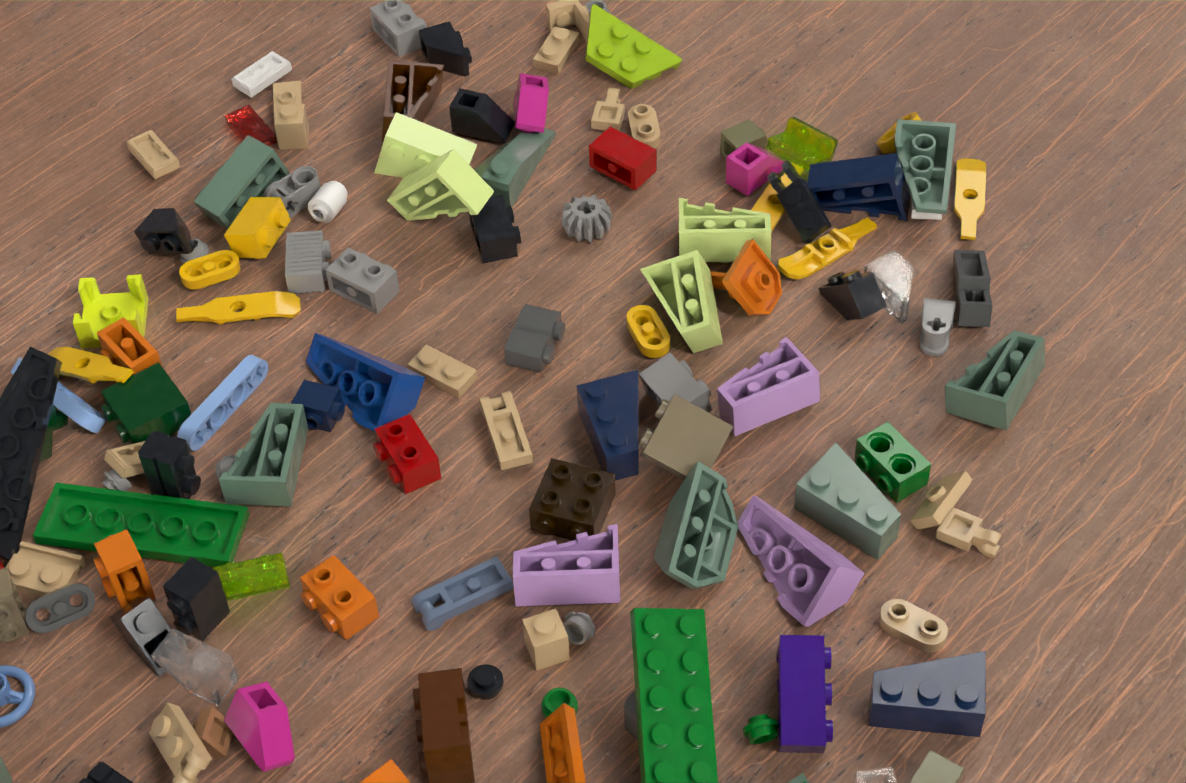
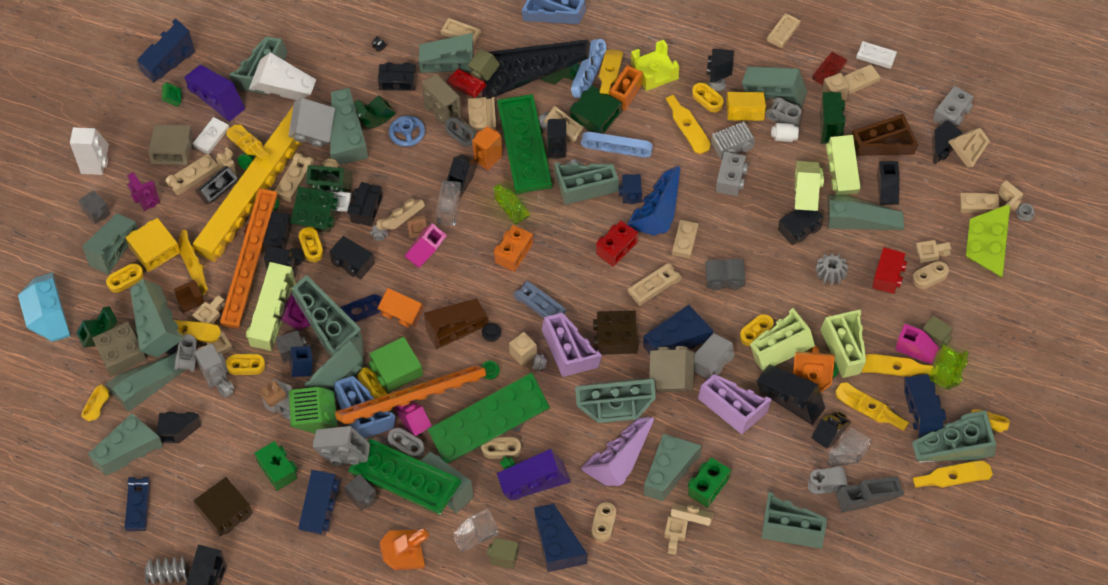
camera: 70 degrees right, 10 degrees up
(196, 599) = (481, 185): black brick -> none
(341, 139) = (831, 116): none -> dark green brick
(468, 26) = (970, 145): none -> tan wing
(530, 103) = (911, 204): dark pink slope -> none
(728, 734) = (501, 447): none -> tan plate
(783, 310) = (792, 393): none -> black wedge
(800, 204) = (893, 377): black hinge -> none

